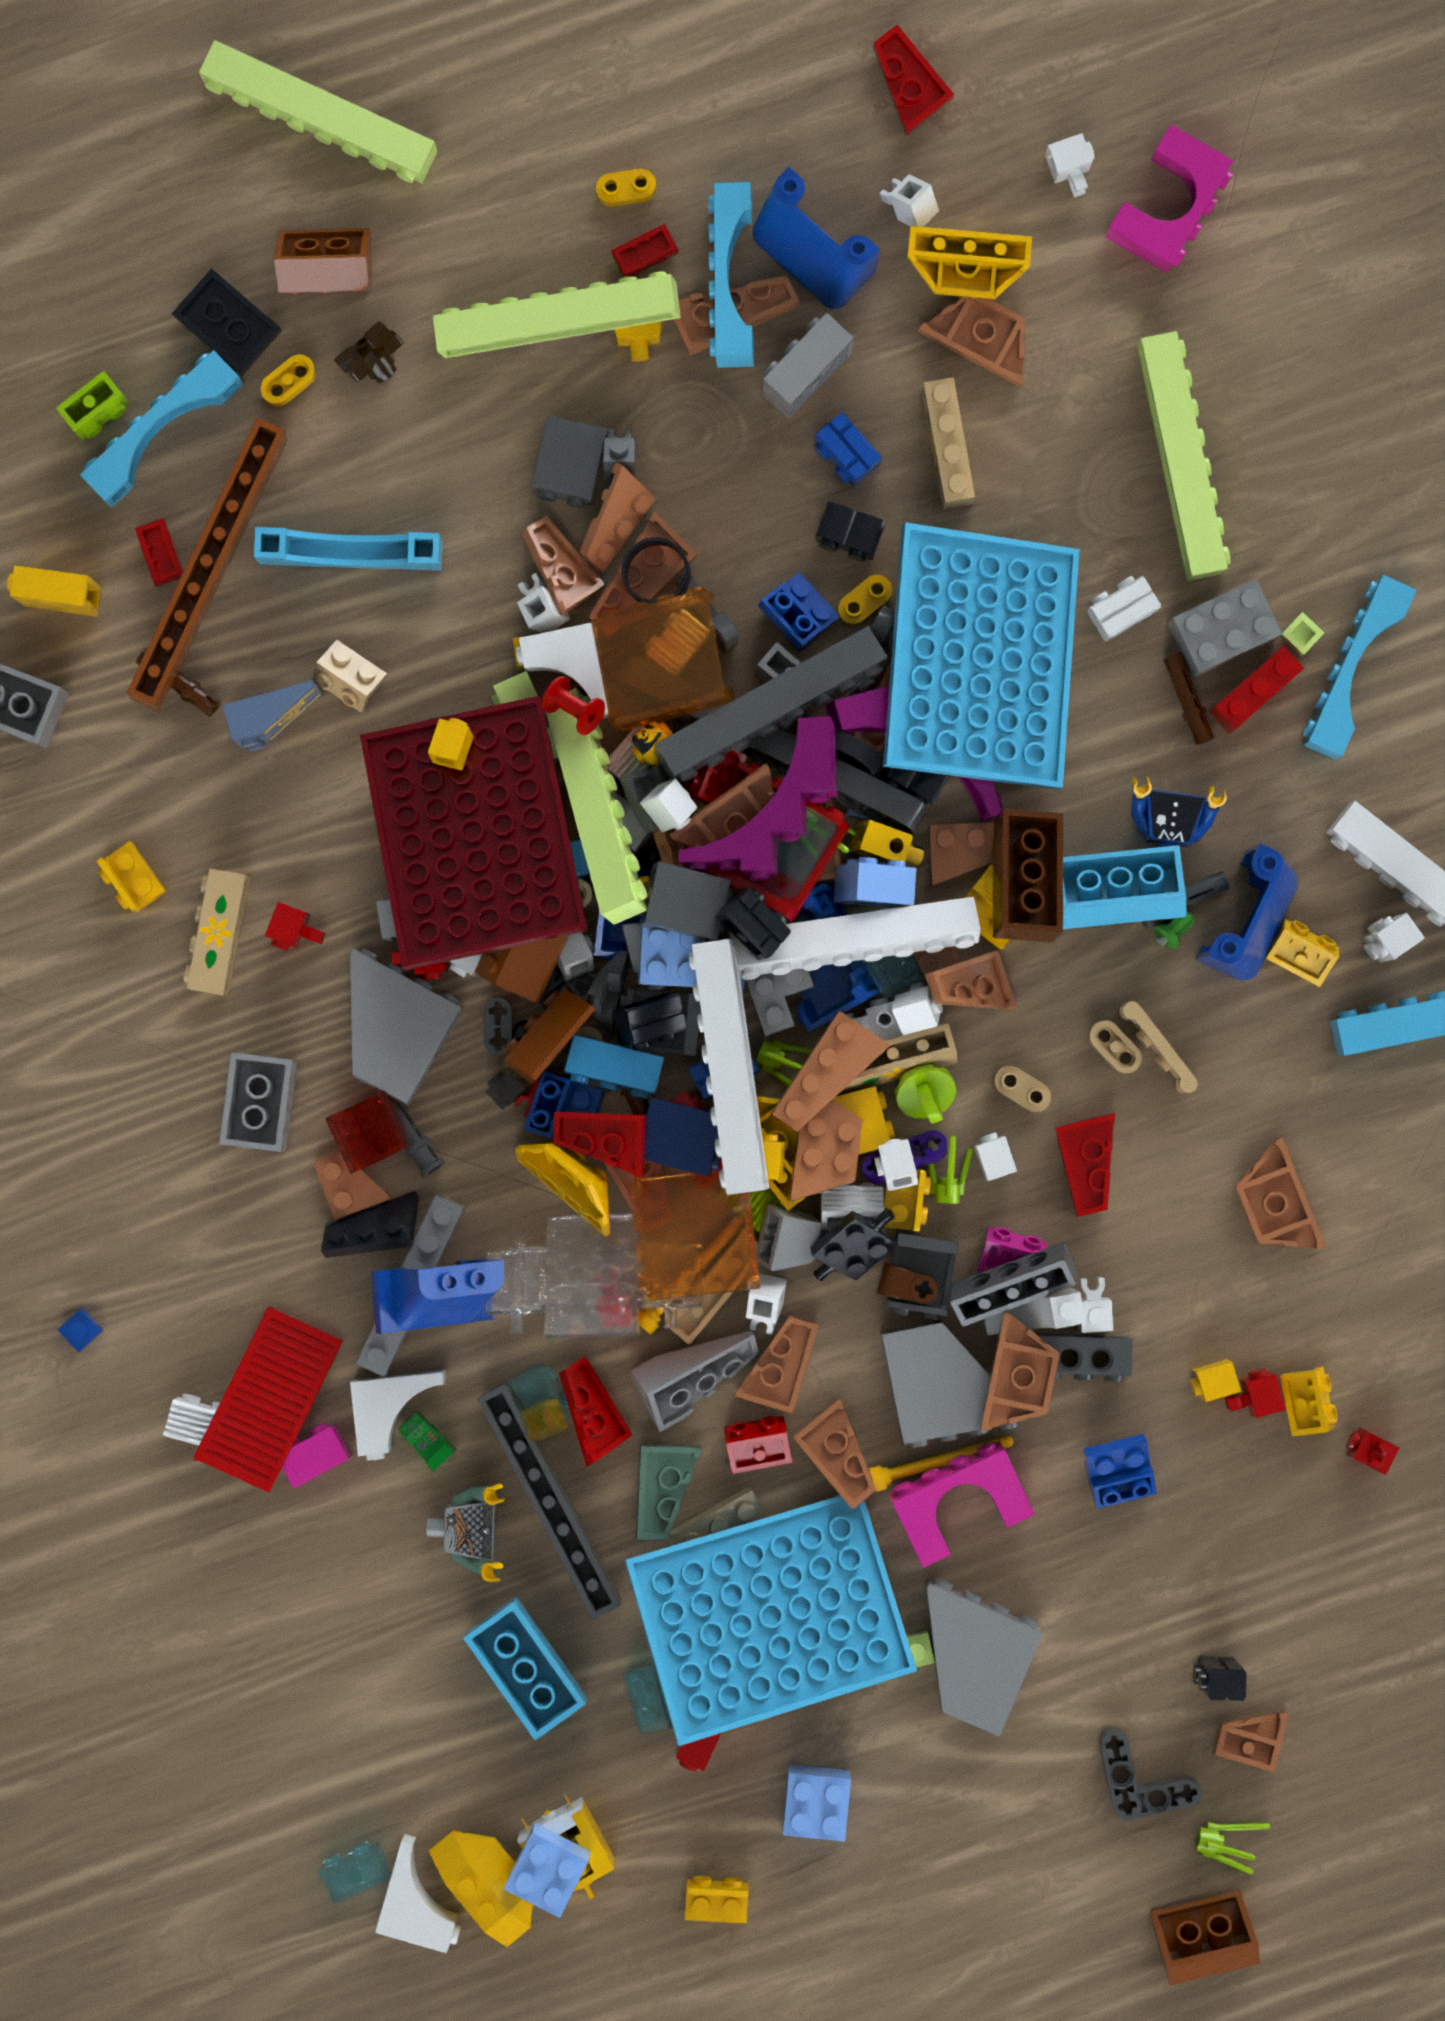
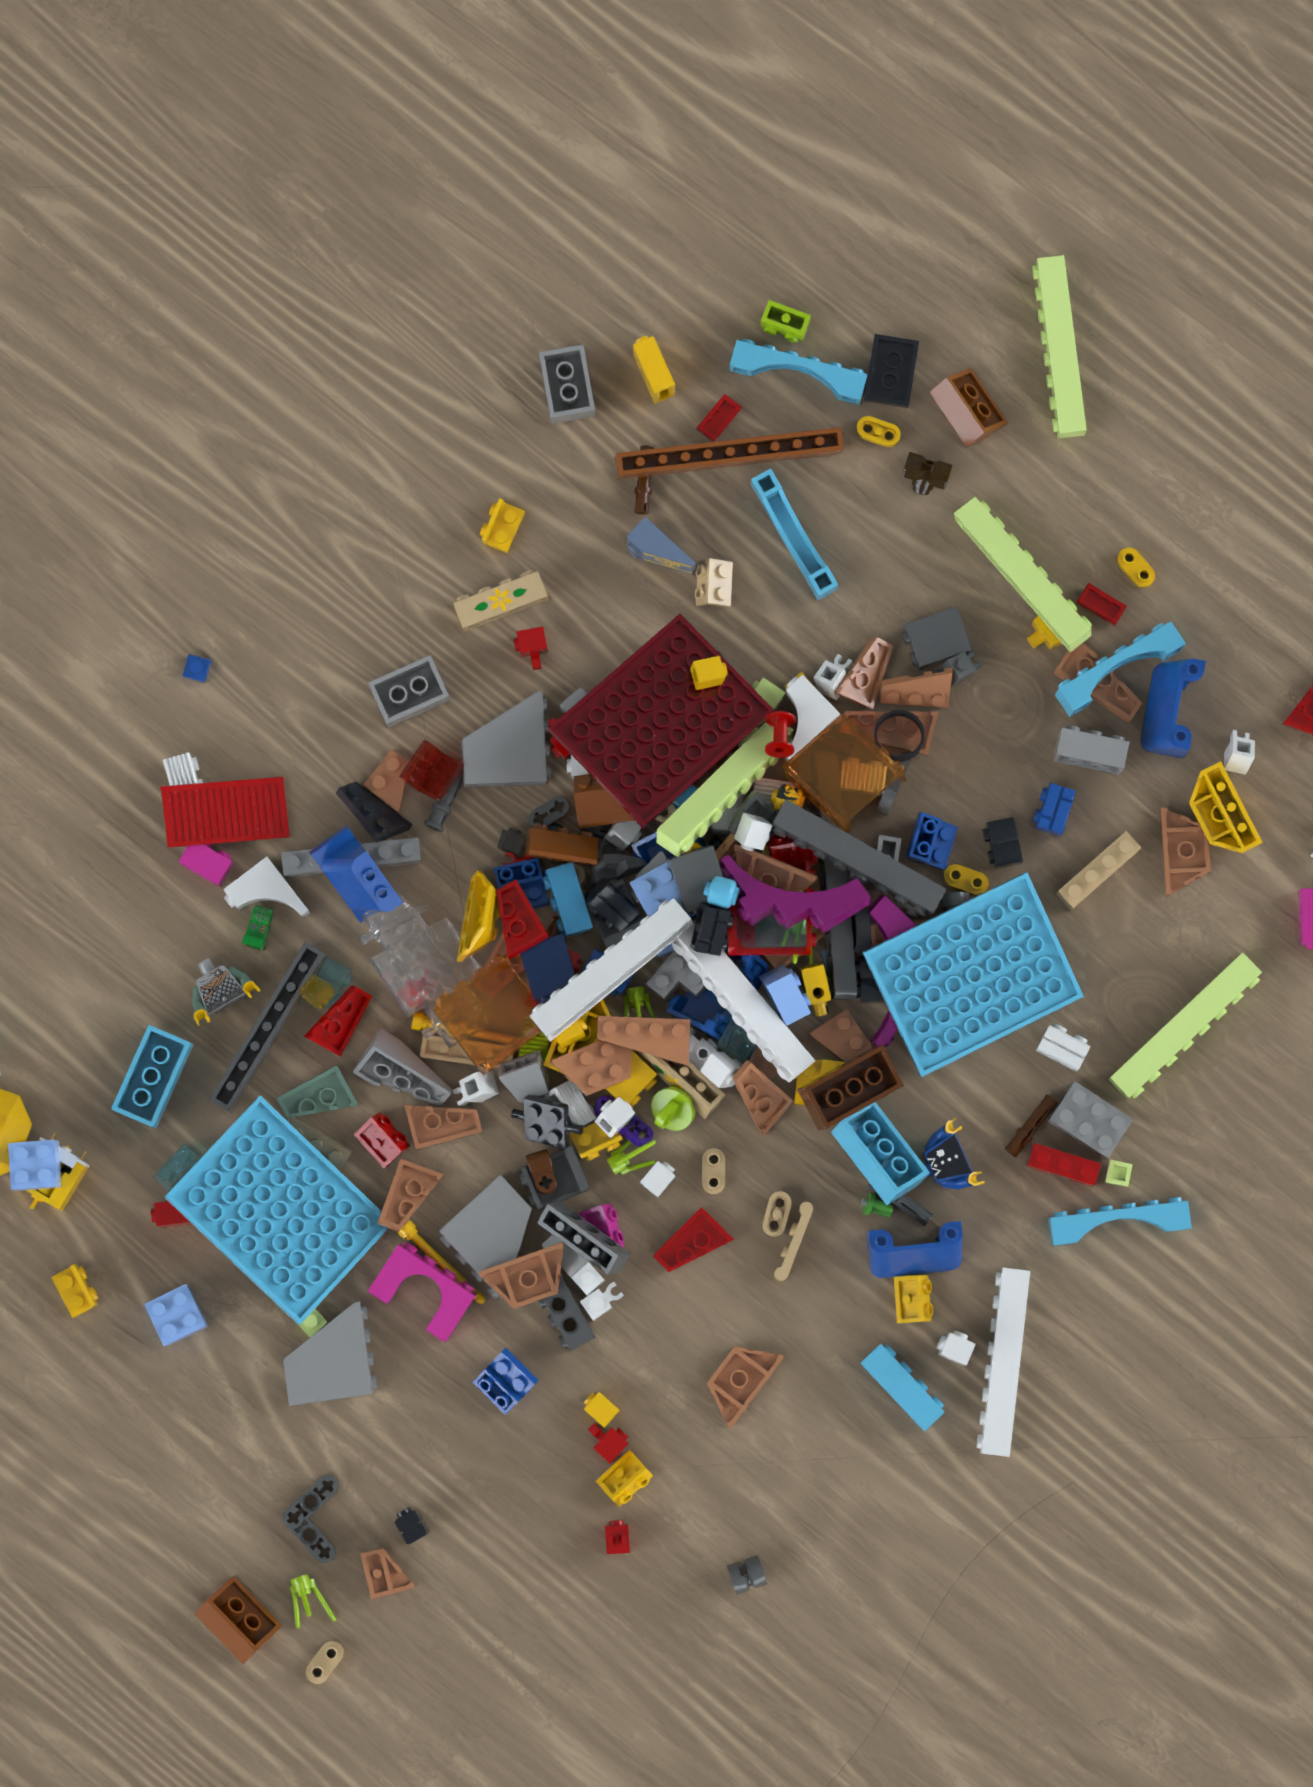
camera: 60 degrees right, 5 degrees down
(720, 884) = (721, 892): none -> medium azure head
(1310, 1867) = (324, 1662): none -> tan plate

